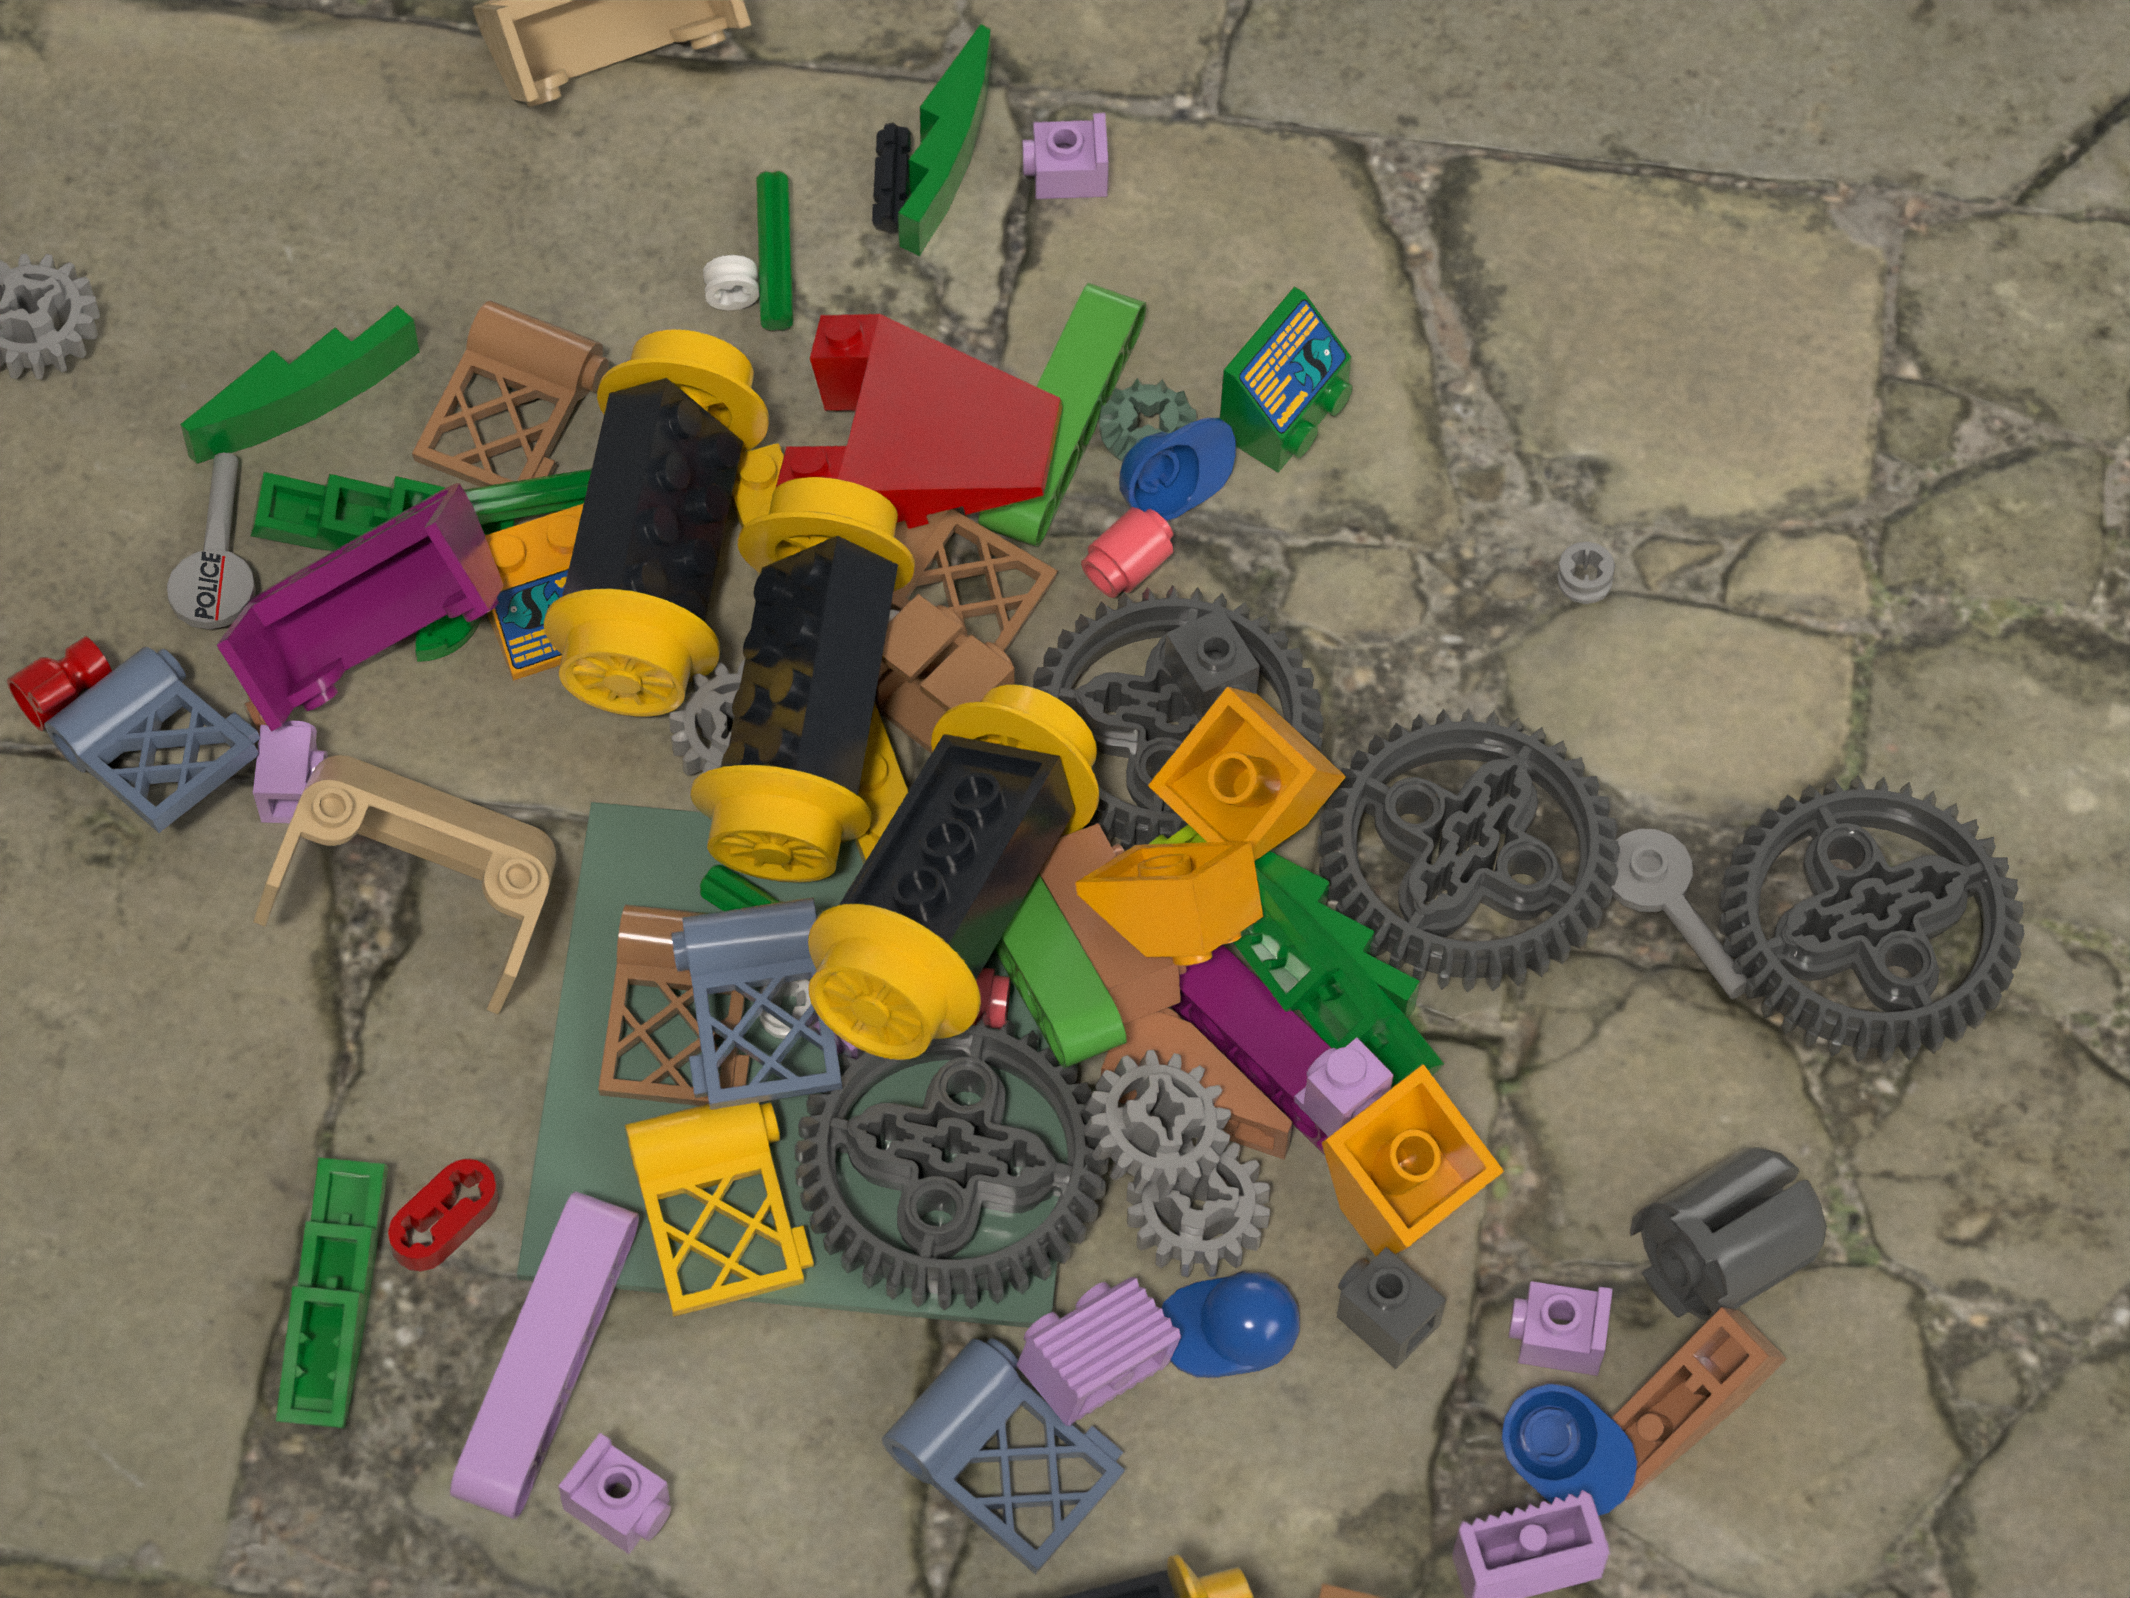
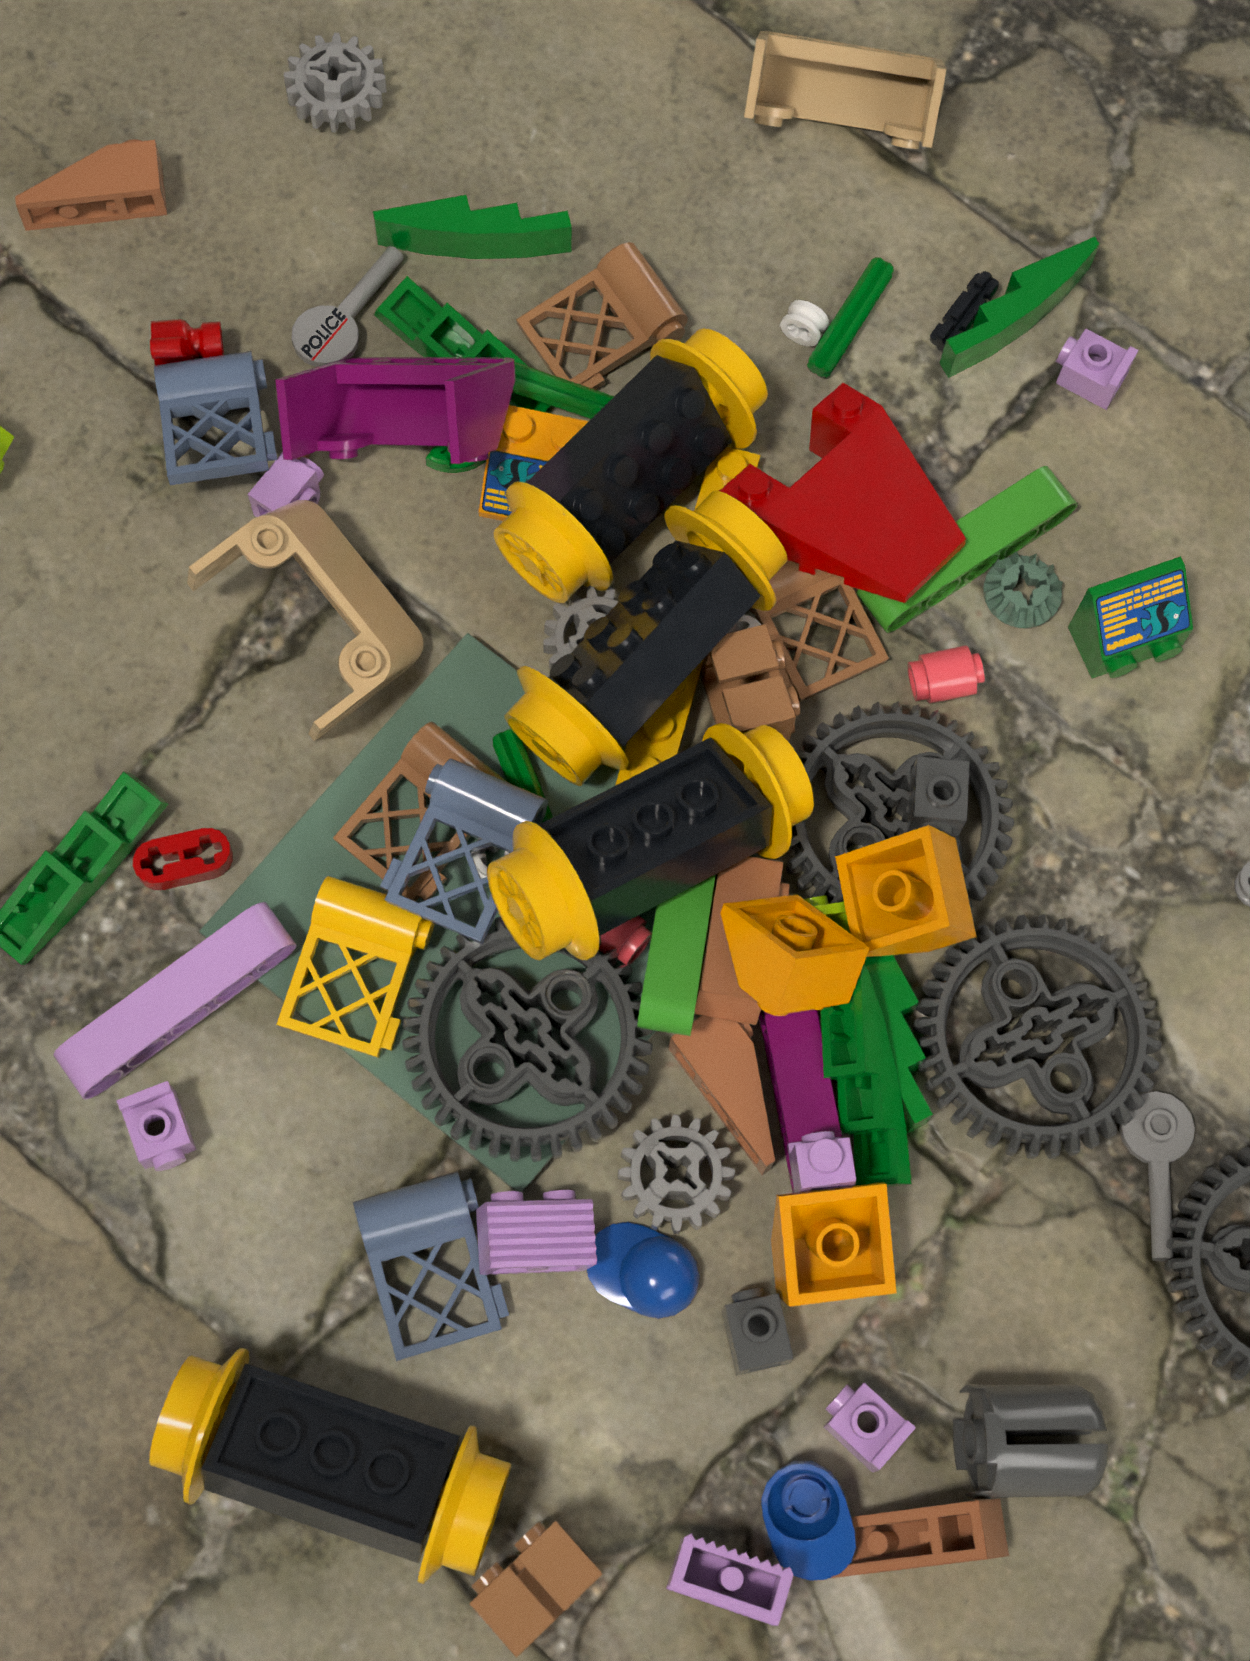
camera: 30 degrees right, 10 degrees up
(1141, 1141) = (697, 1115): light grey gear -> none
(1178, 467) = (1018, 637): blue cap -> none

